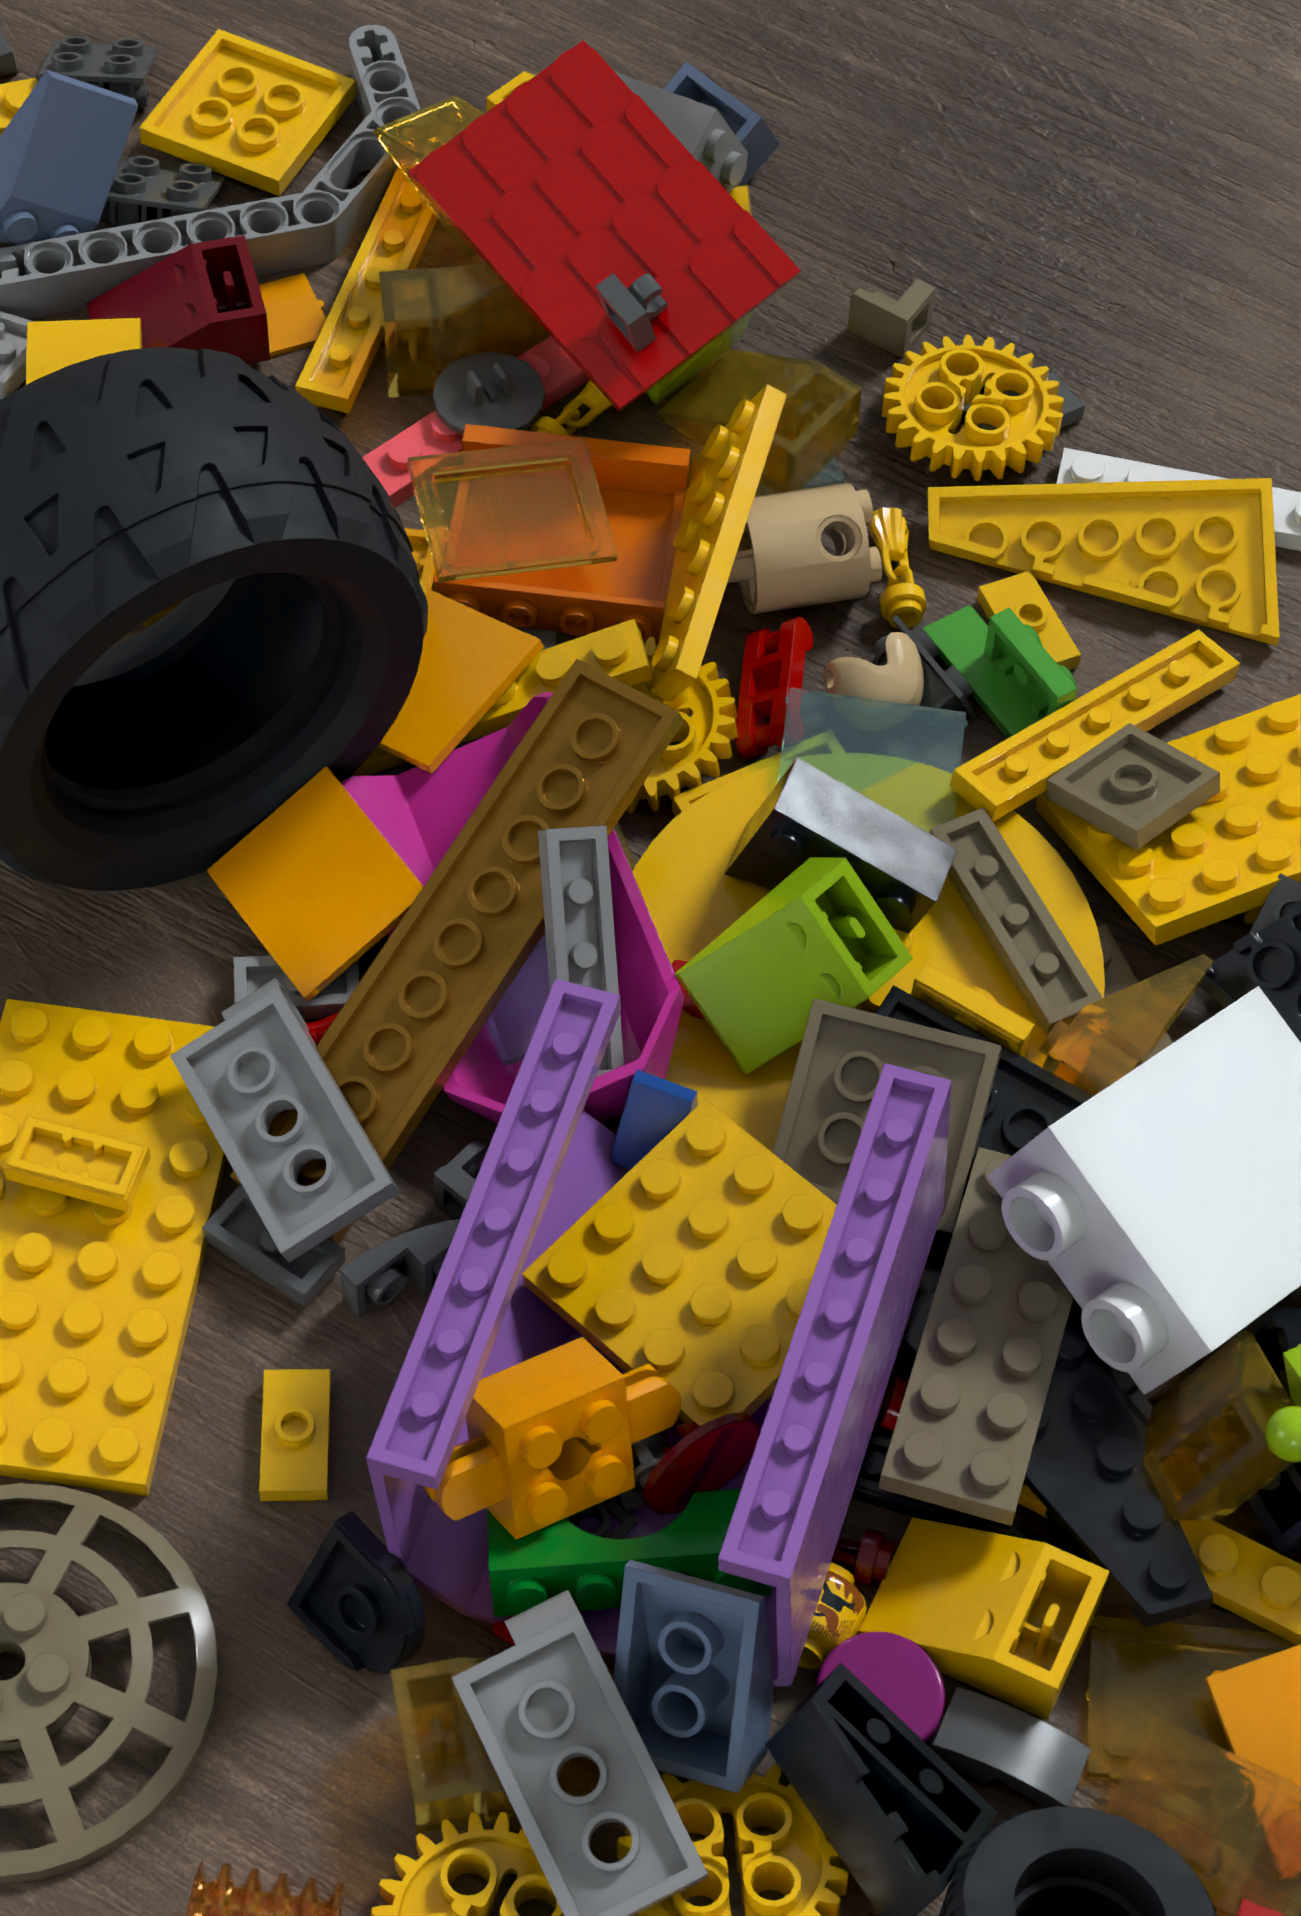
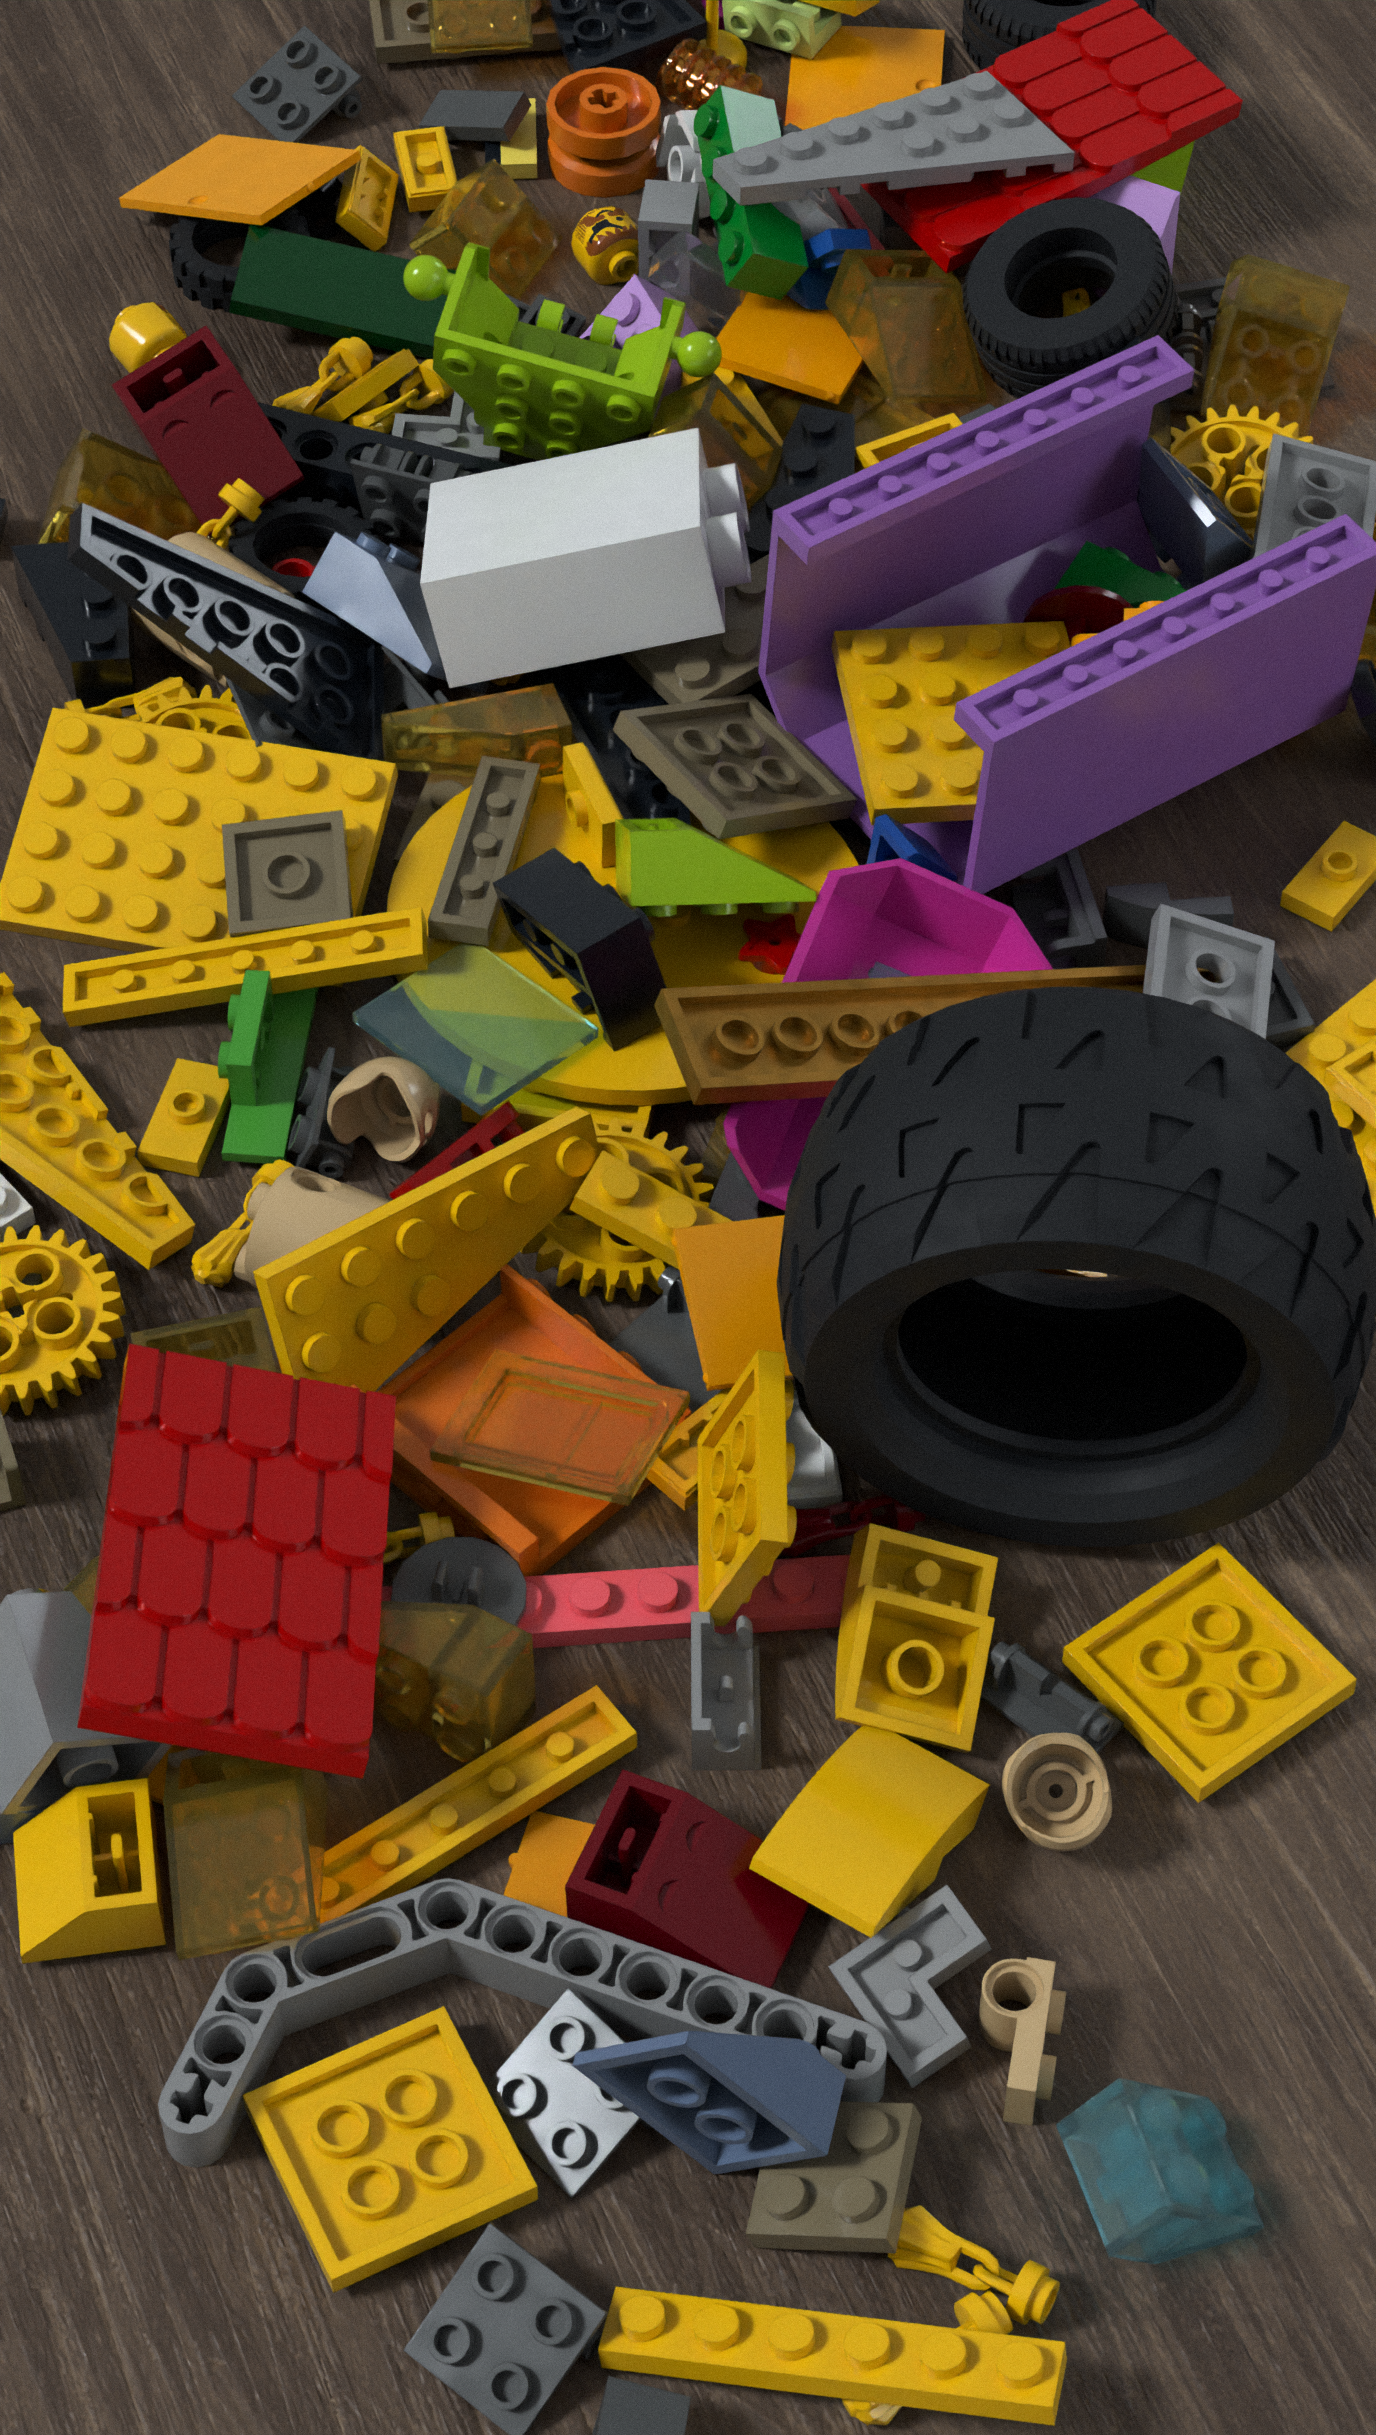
camera: 140 degrees left, 5 degrees down
(580, 916) = (880, 943): light grey plate -> none
(632, 307) = (316, 1416): dark grey tile -> none

